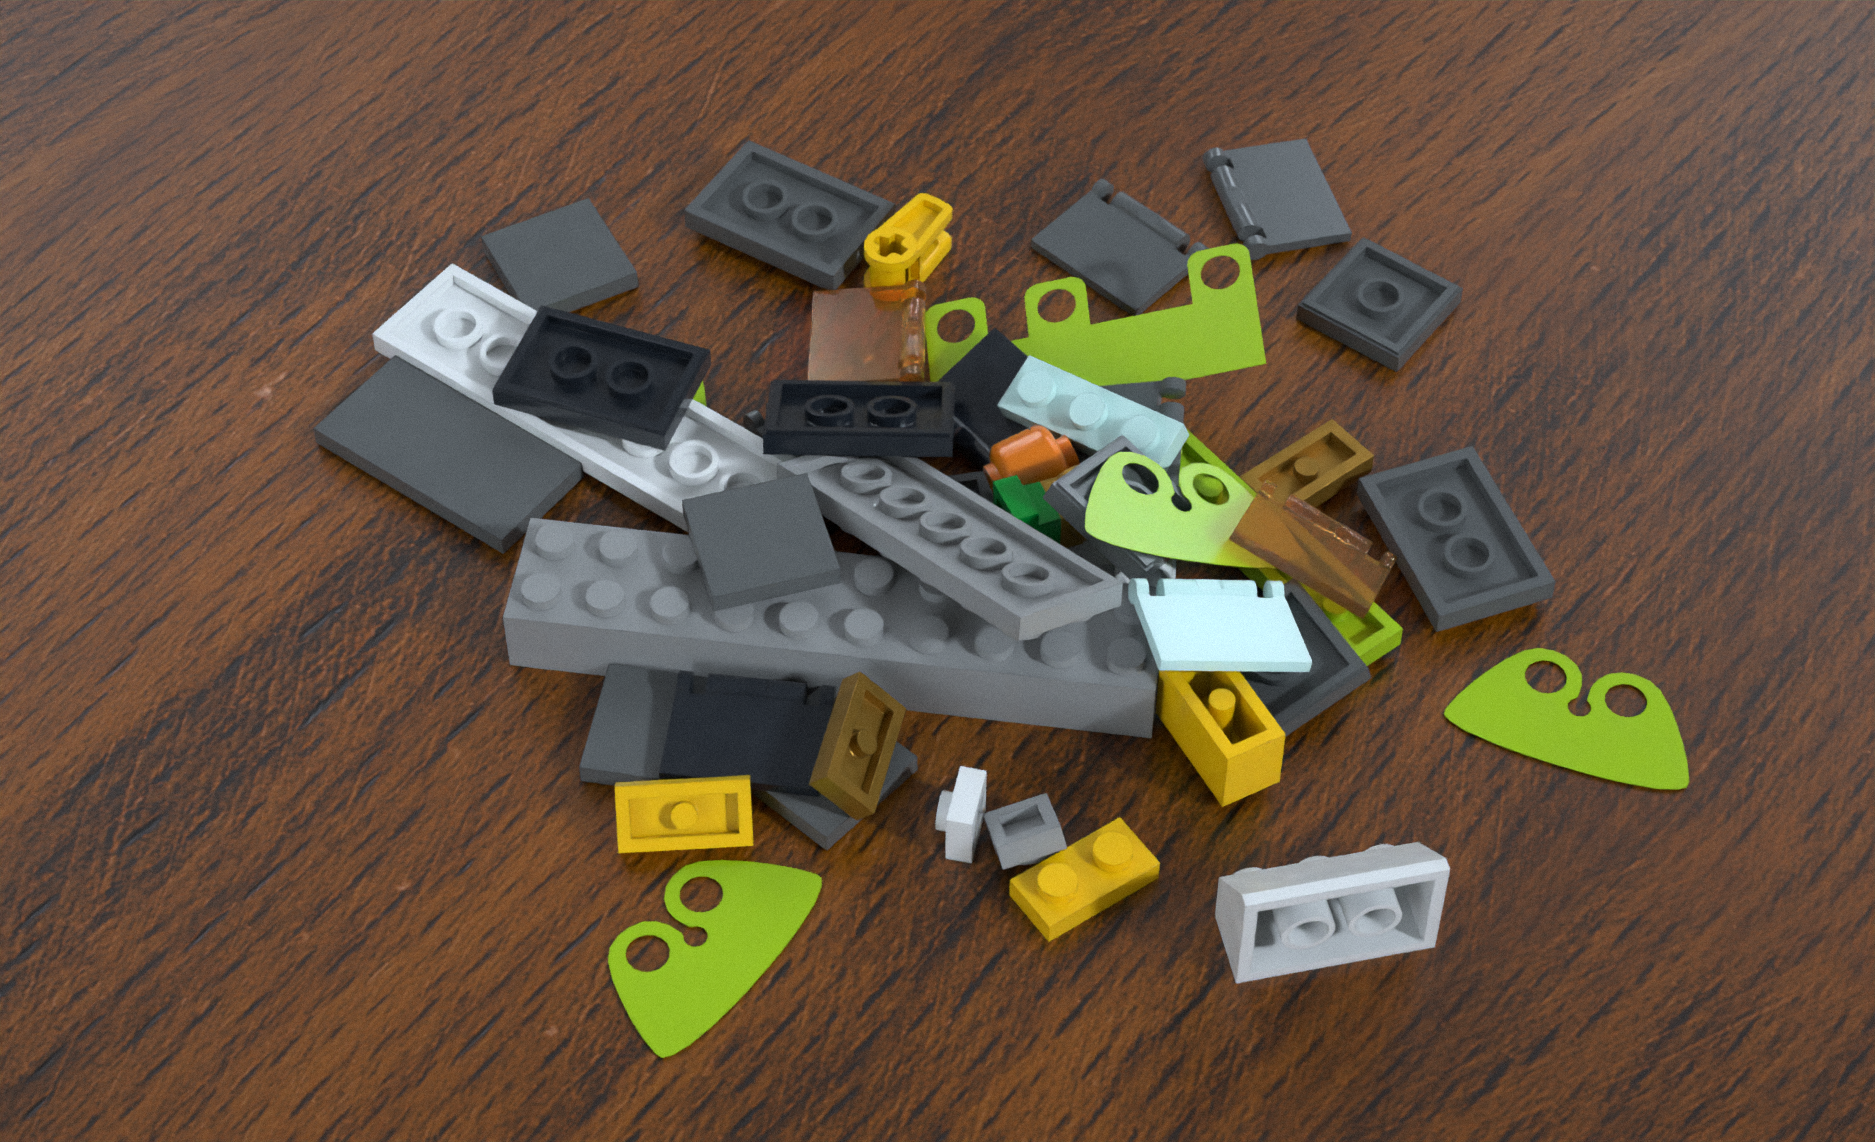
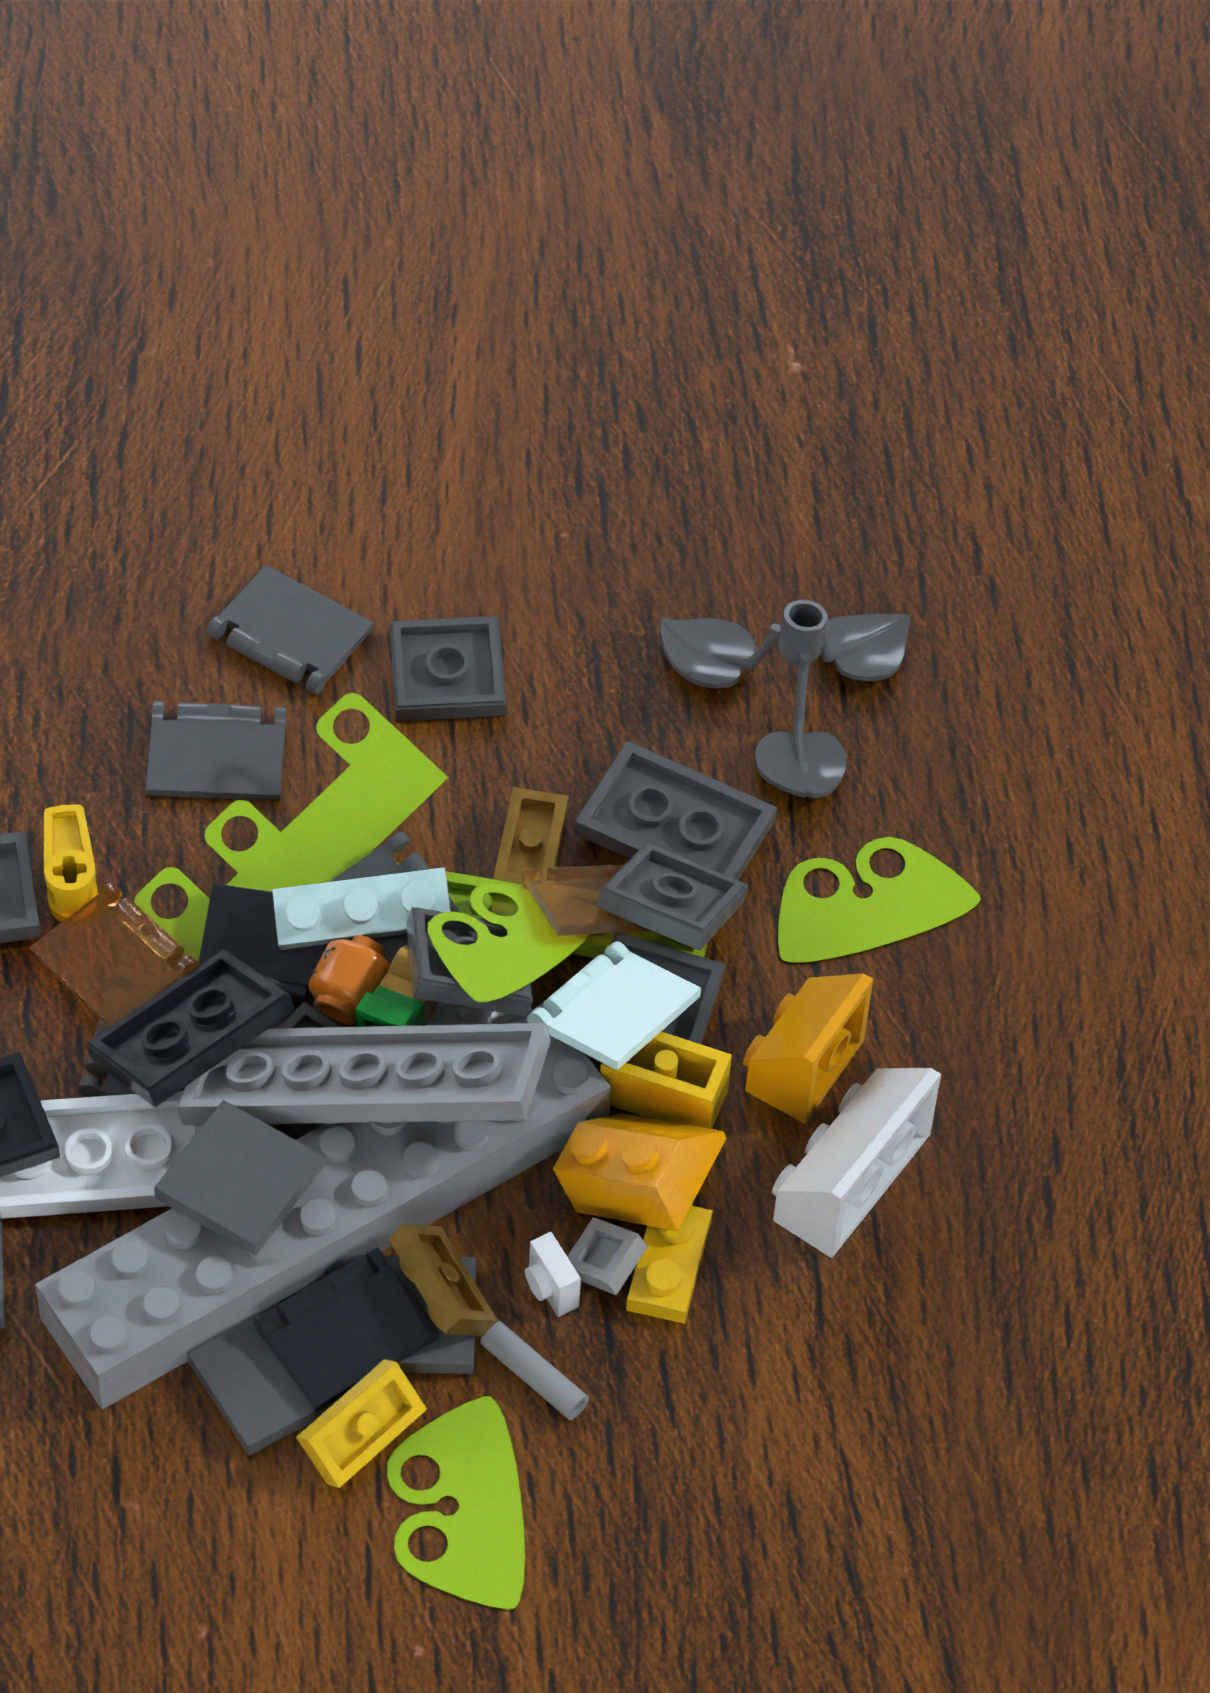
camera: 45 degrees left, 5 degrees up
(875, 882) = (534, 1370): none -> light grey piece
(1121, 775) = (637, 1168): none -> light orange slope
(1373, 582) = (672, 896): none -> dark grey tile
(1384, 789) = (809, 1043): none -> light orange slope
(1635, 430) = (860, 645): none -> dark grey plant

